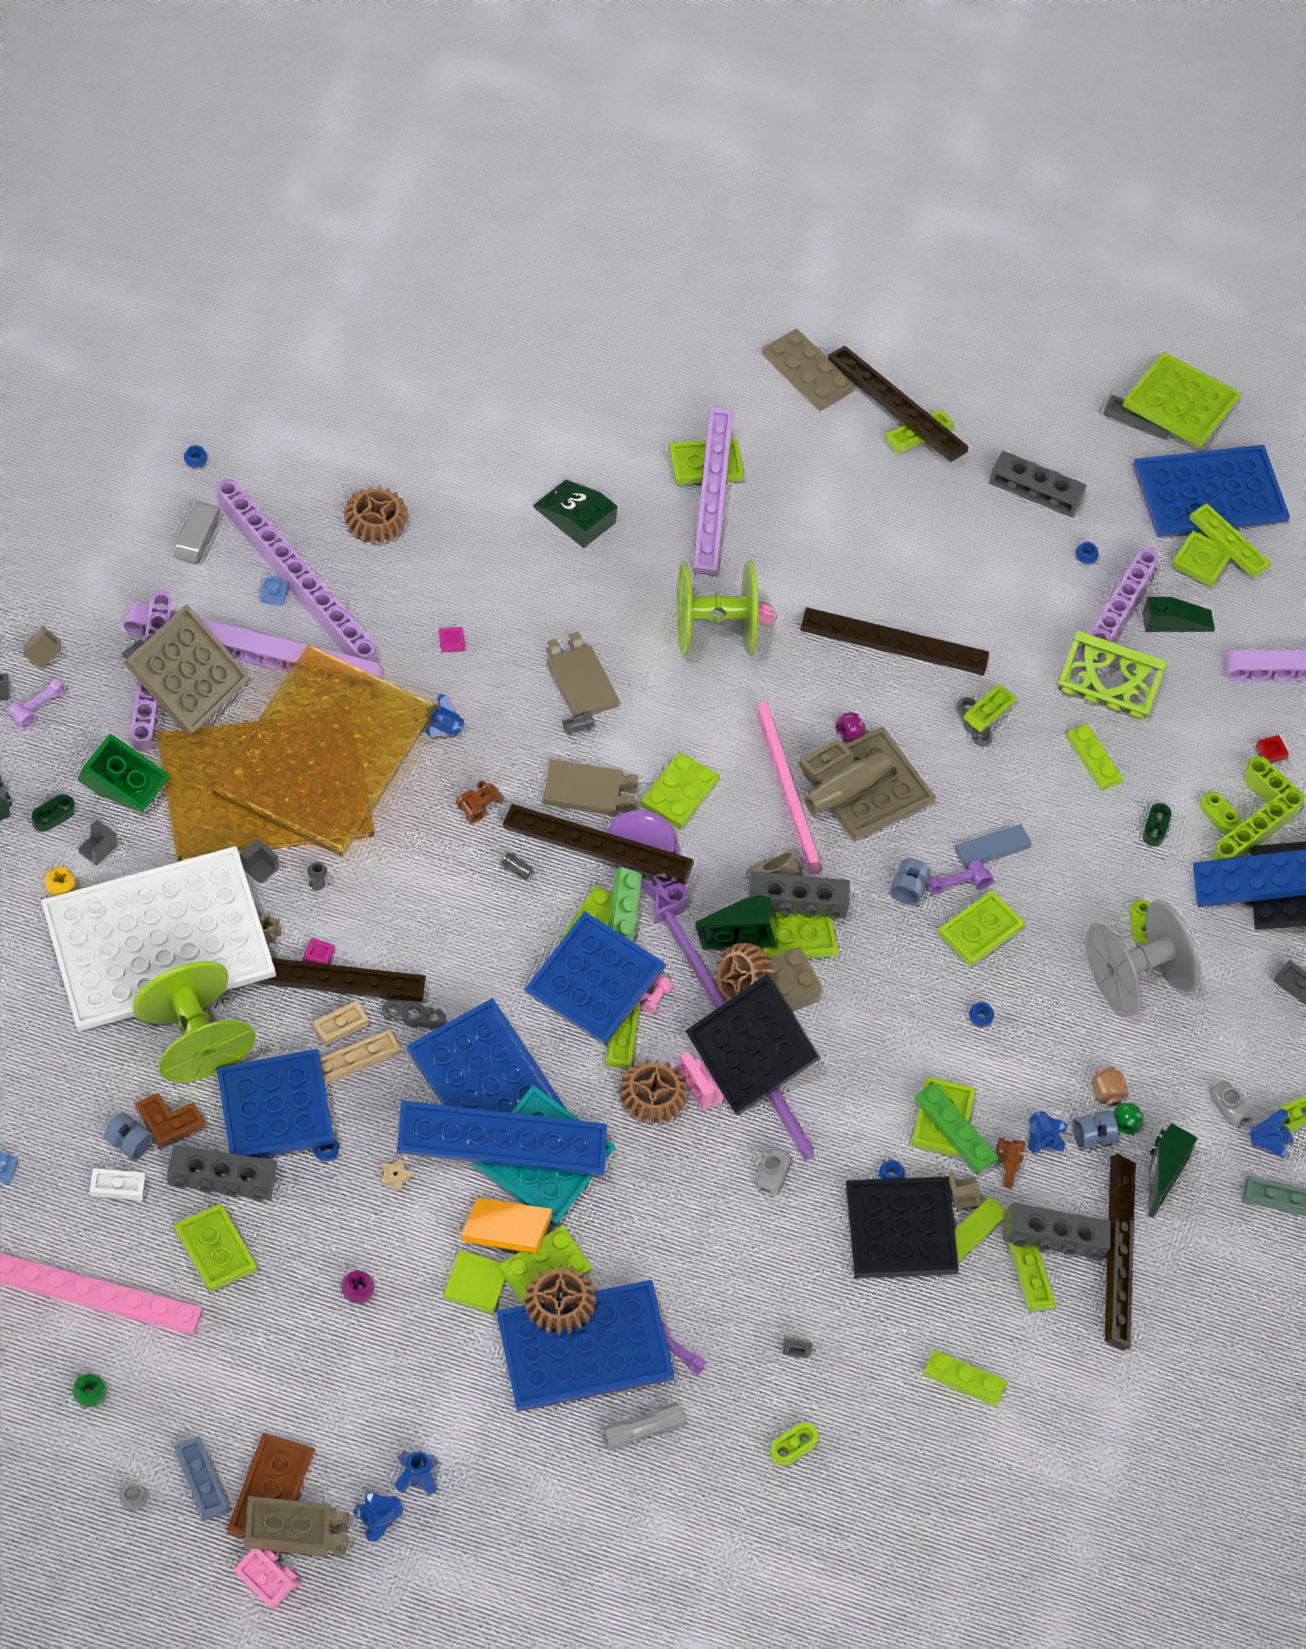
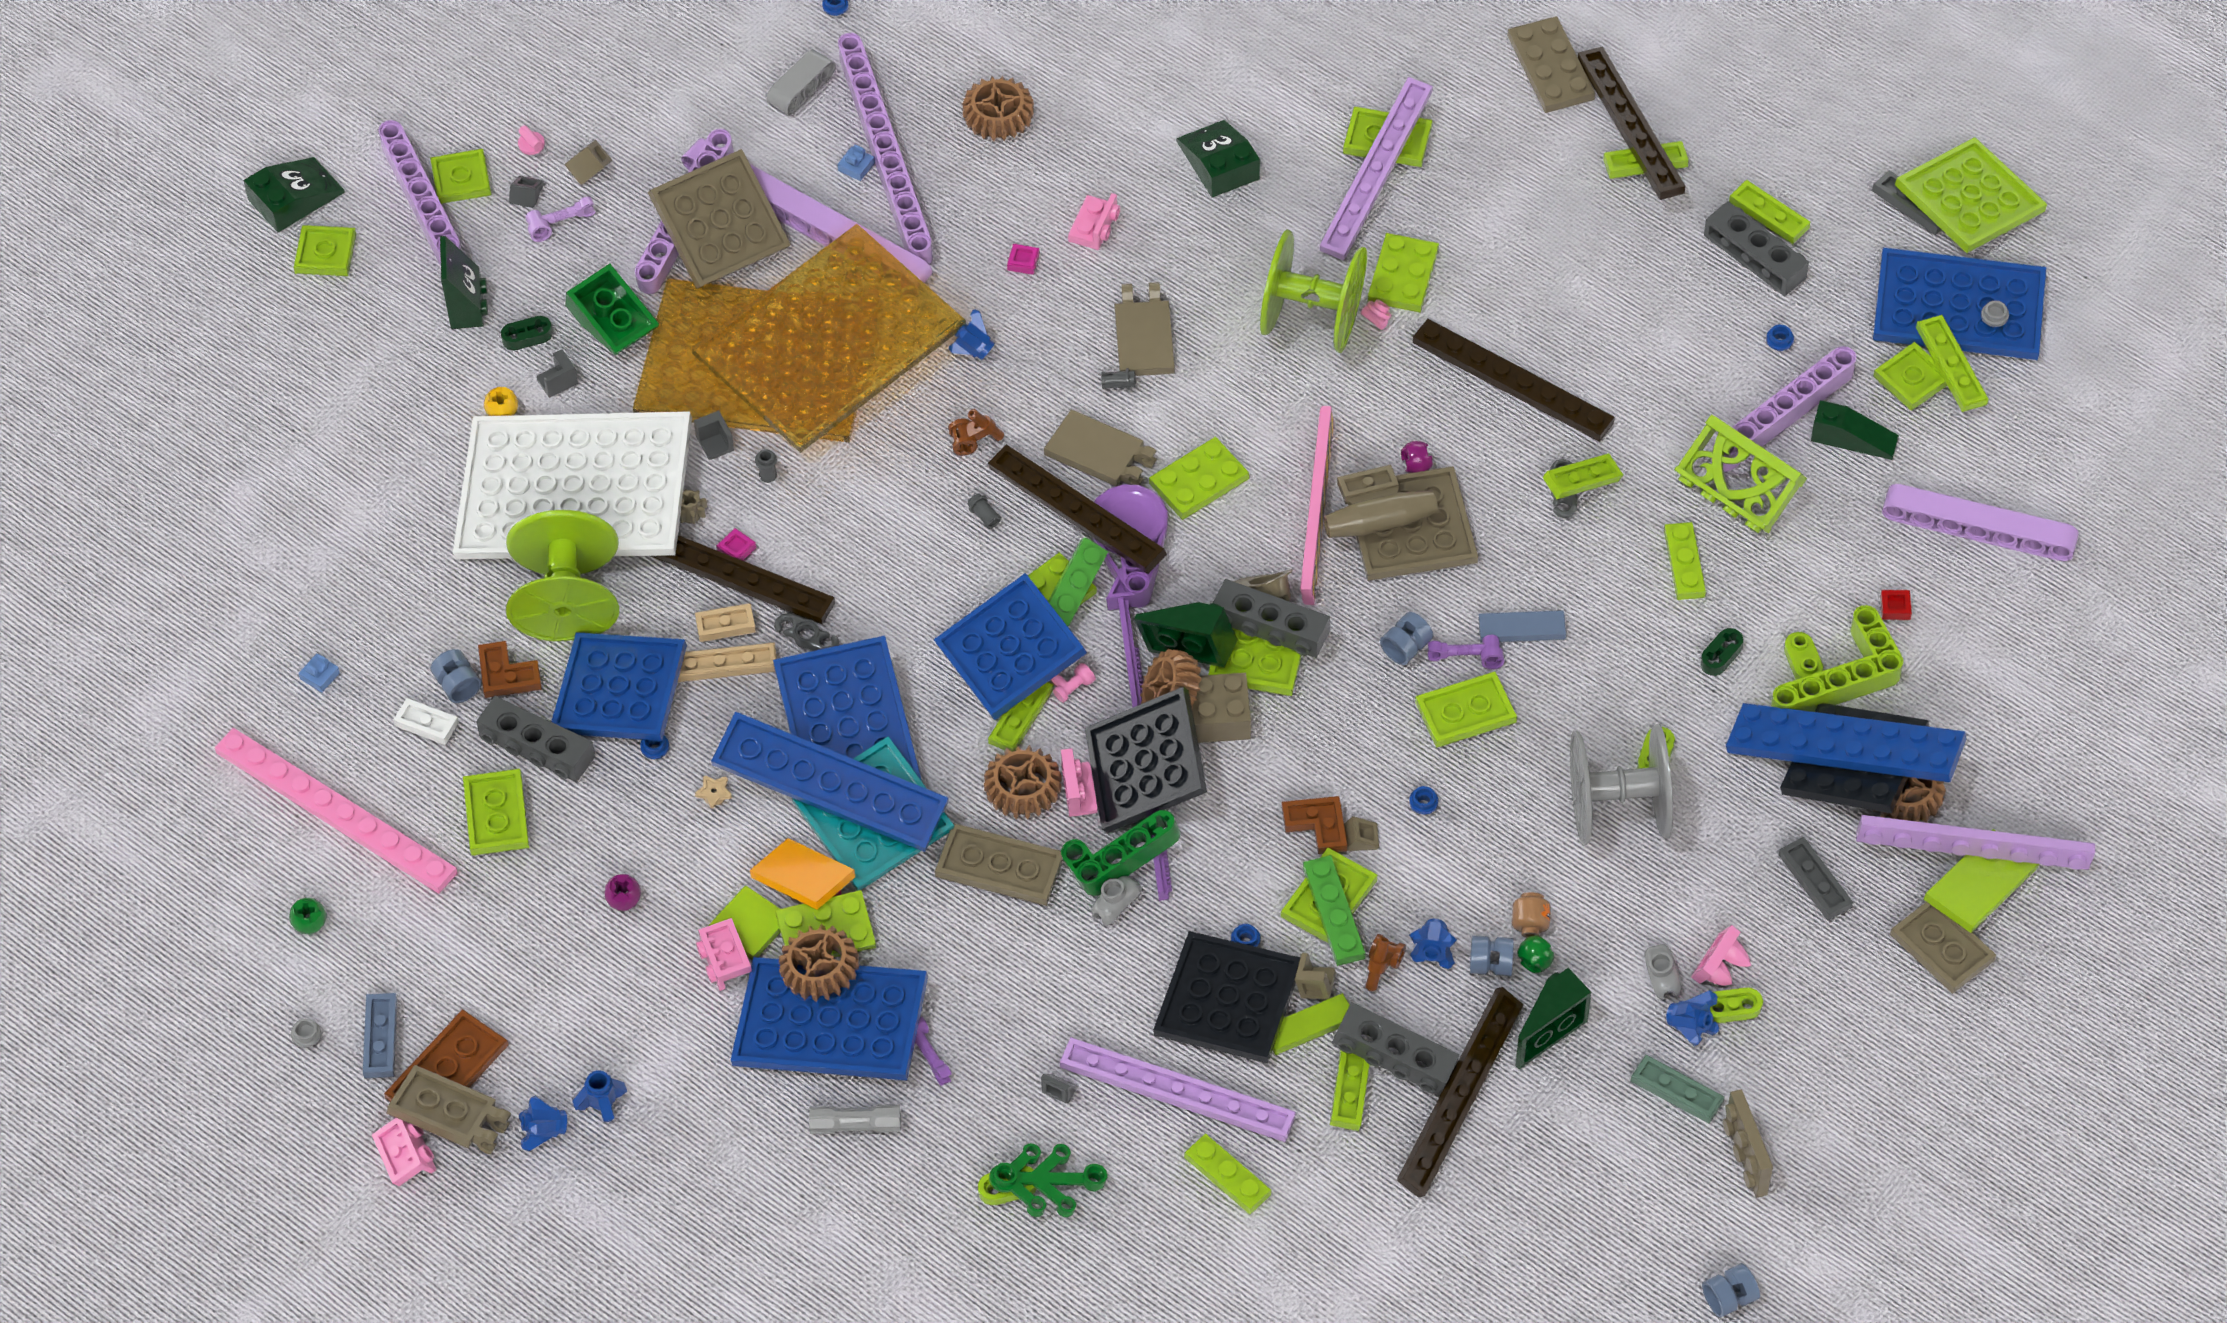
camera: 30 degrees right, 0 degrees up
(469, 1315) = (723, 952): none -> bright pink bracket
(497, 592) = (1094, 221): none -> bright pink bracket
(665, 1168) = (999, 864): none -> dark tan plate
(765, 1126) = (1121, 848): none -> green beam
(772, 570) = (1403, 272): none -> lime plate
(824, 1430) = (1044, 1179): none -> green plant
(894, 1318) = (1178, 1089): none -> lavender plate
(909, 1051) = (1320, 815): none -> dark orange plate
(942, 1058) = (1361, 834): none -> dark tan slope
(1034, 450) = (1769, 211): none -> lime plate
(1245, 492) = (1995, 314): none -> light grey plate
(1267, 1072) = (1724, 947): none -> bright pink tile

